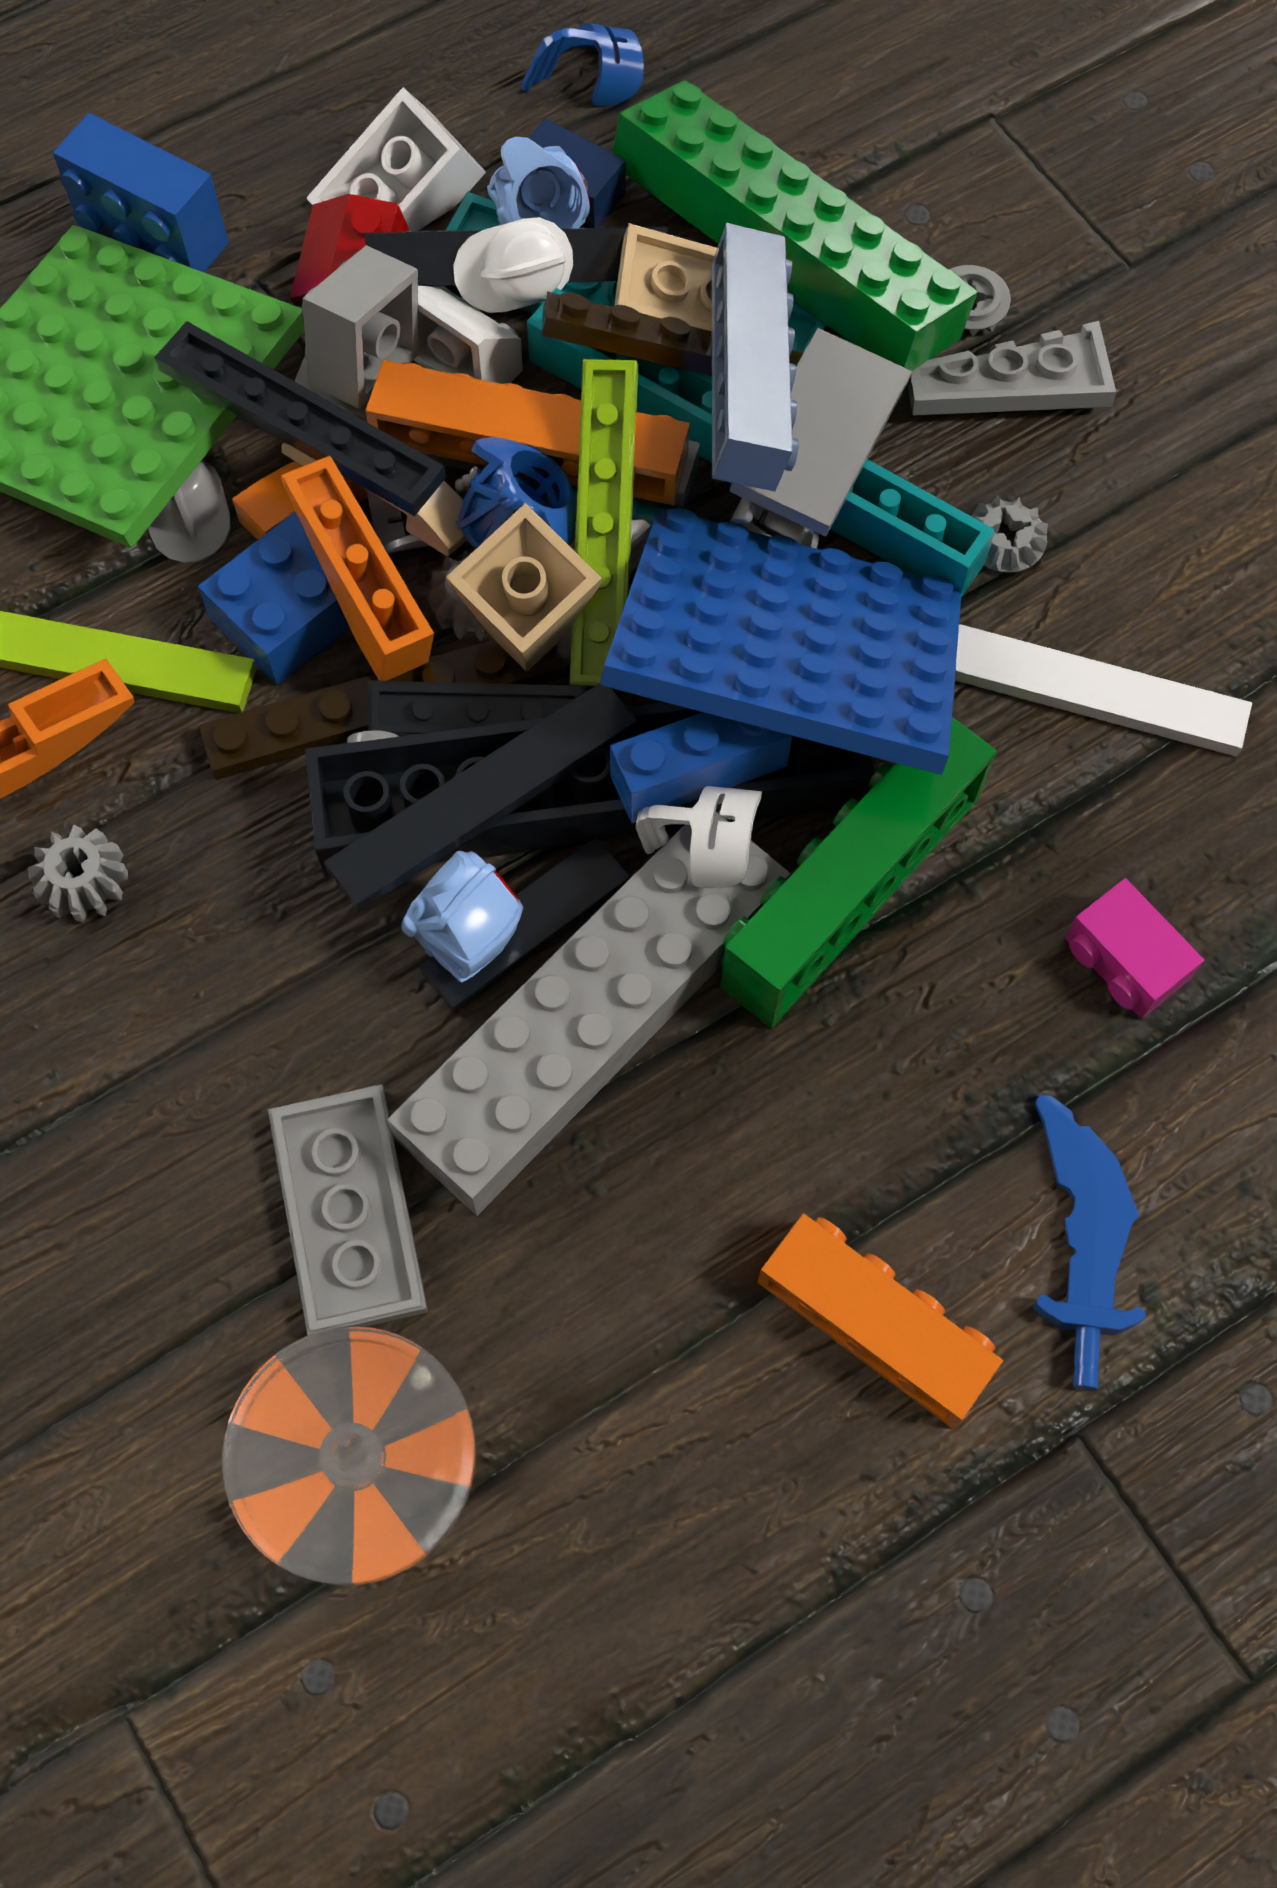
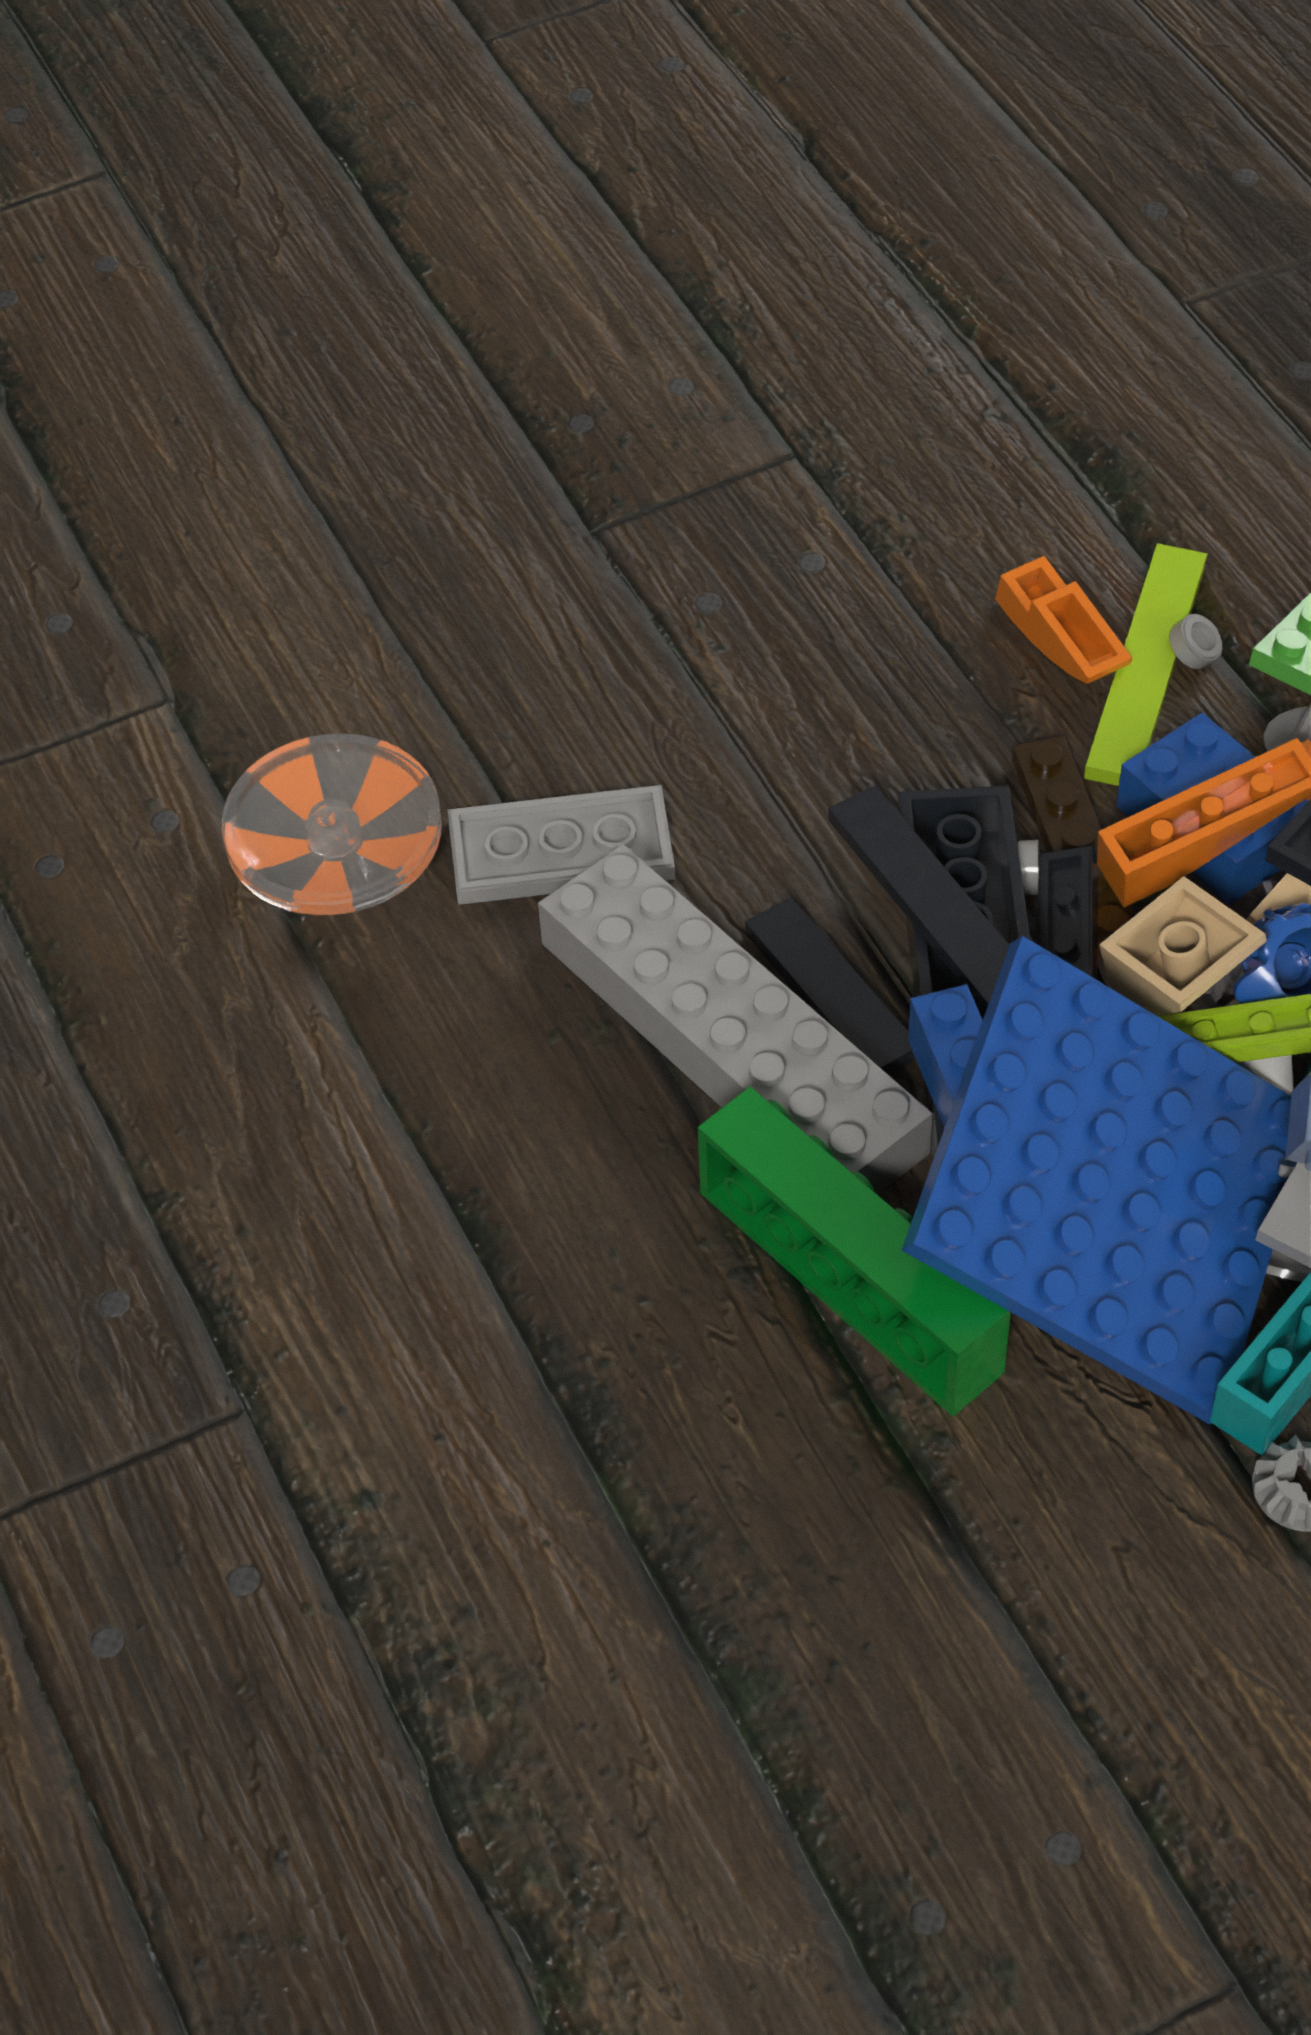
camera: 100 degrees right, 15 degrees down
(71, 855) = (907, 648): light grey gear -> none
(72, 609) = (1195, 641): none -> light grey tile
(464, 915) = (825, 908): light blue piece -> none
(729, 859) = (903, 1090): white helmet -> none
(880, 1320) = (377, 1235): orange brick -> none
(1095, 1234) = (438, 1450): blue sword -> none
(1101, 691) = (1084, 1551): white tile -> none
(1132, 949) = (743, 1522): dark pink brick -> none

